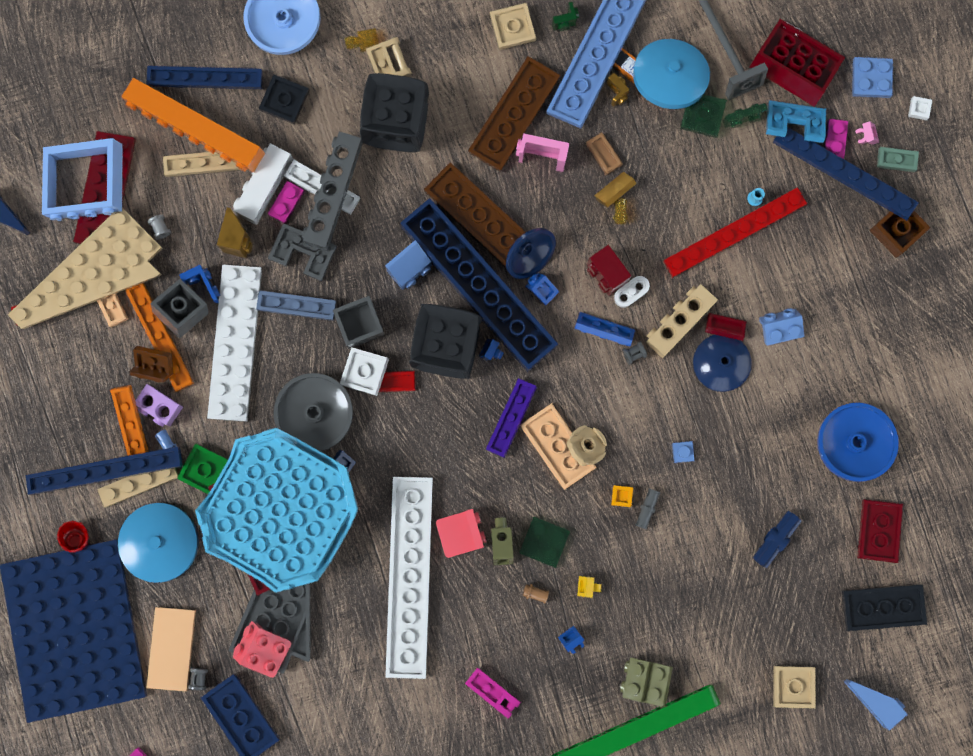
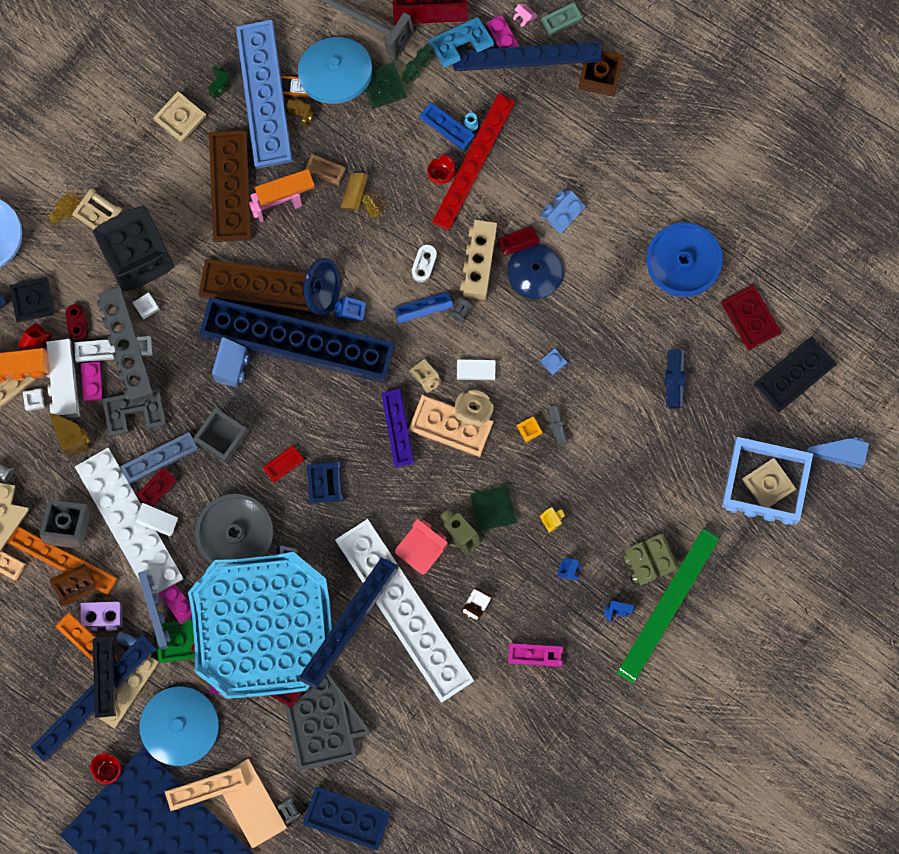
camera: 35 degrees left, 5 degrees down
(121, 461) = (104, 677): none -> black plate
(141, 612) = (205, 789): none -> light nougat tile
(193, 276) = (57, 490): blue bracket -> none
(199, 439) = (156, 617): none -> sand blue plate
(225, 437) = (176, 603): none -> dark pink plate
(228, 184) = (33, 399): none -> white tile
(257, 356) = (156, 519): none -> white tile
(261, 650) = (325, 749): coral bracket -> none
(262, 133) = (34, 338): none -> red piece
(277, 329) = (157, 487): none -> dark red plate
(308, 143) = (76, 322): none -> dark red plate
(350, 560) = (348, 623): none -> dark blue plate
(364, 371) = (252, 472): white plate -> none
(373, 168) = (145, 306): none -> white plate
(413, 418) = (319, 485): none -> dark blue plate
(445, 341) = (303, 401): black piece -> none
(473, 614) = (476, 604): none -> bracket
(490, 350) = (343, 386): blue tile -> none
(535, 593) = (514, 553): medium nougat pin -> none
(556, 146) = (284, 187): none -> orange tile
(566, 389) = (426, 376): none -> tan bracket
(592, 706) = (621, 610): none -> blue bracket
(608, 270) = (393, 258): dark red brick -> none
(612, 413) = (475, 369): none -> white tile
(702, 221) = (441, 169): none -> red hair
(733, 186) = (447, 126): none -> blue plate
(819, 663) = (774, 451): none -> light blue window

